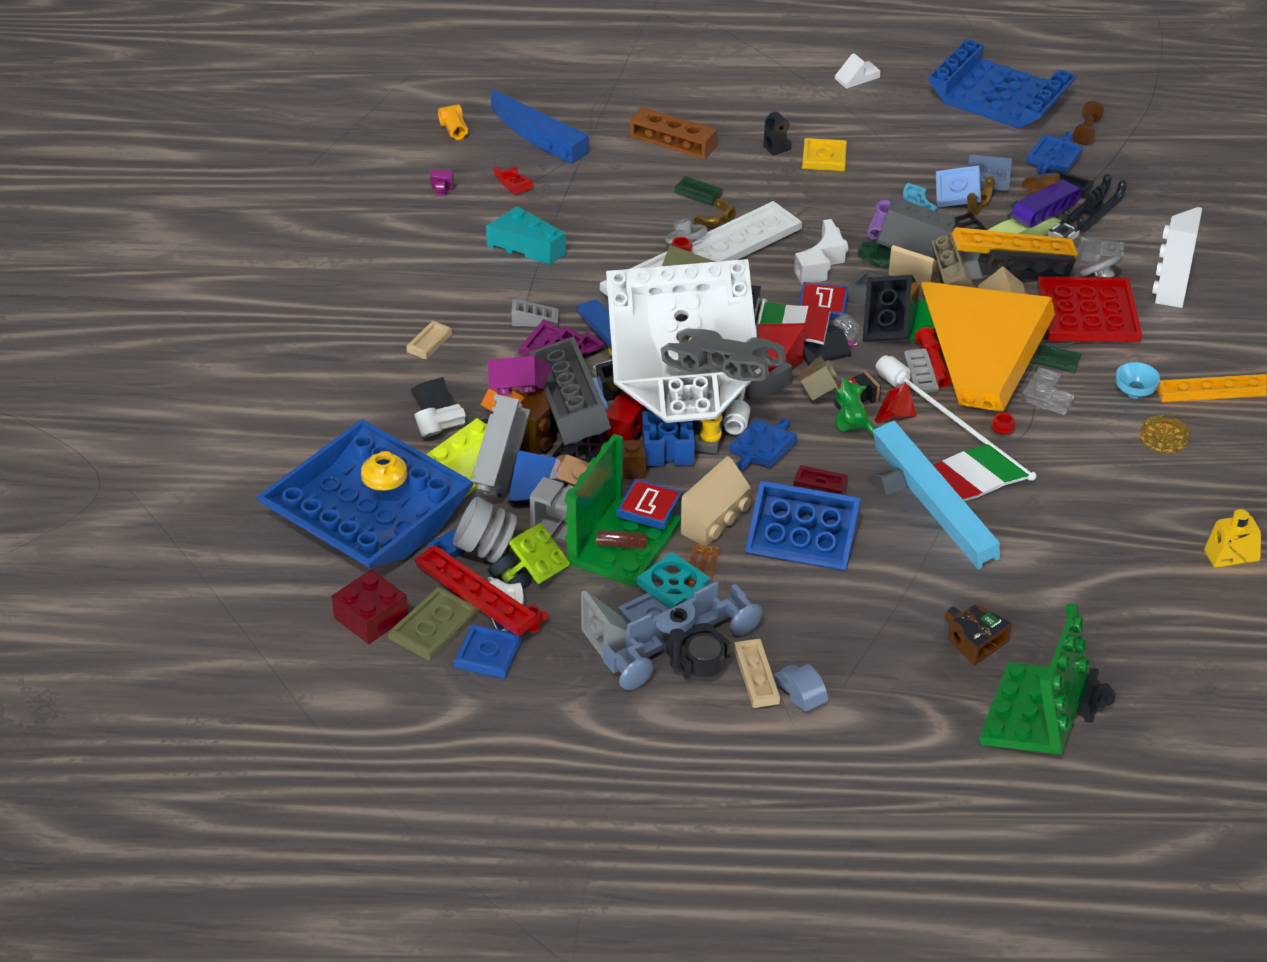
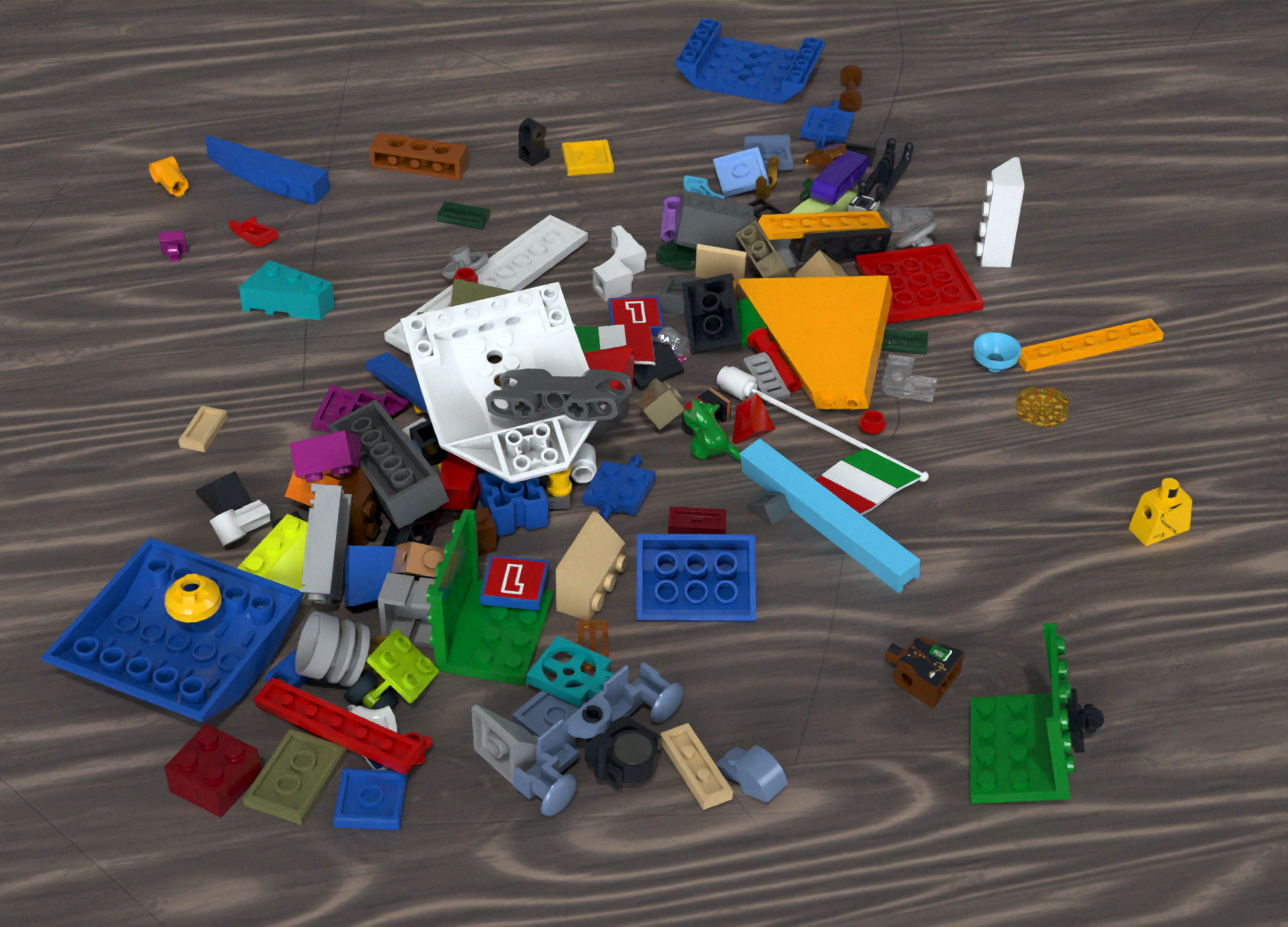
camera: 15 degrees left, 0 degrees up
(531, 314) = (316, 380): light grey slope -> none
(621, 539) = (494, 631): clear red axle -> none
(714, 222) = (492, 245): pearl gold cap -> none
(856, 72) = (595, 67): white slope -> none

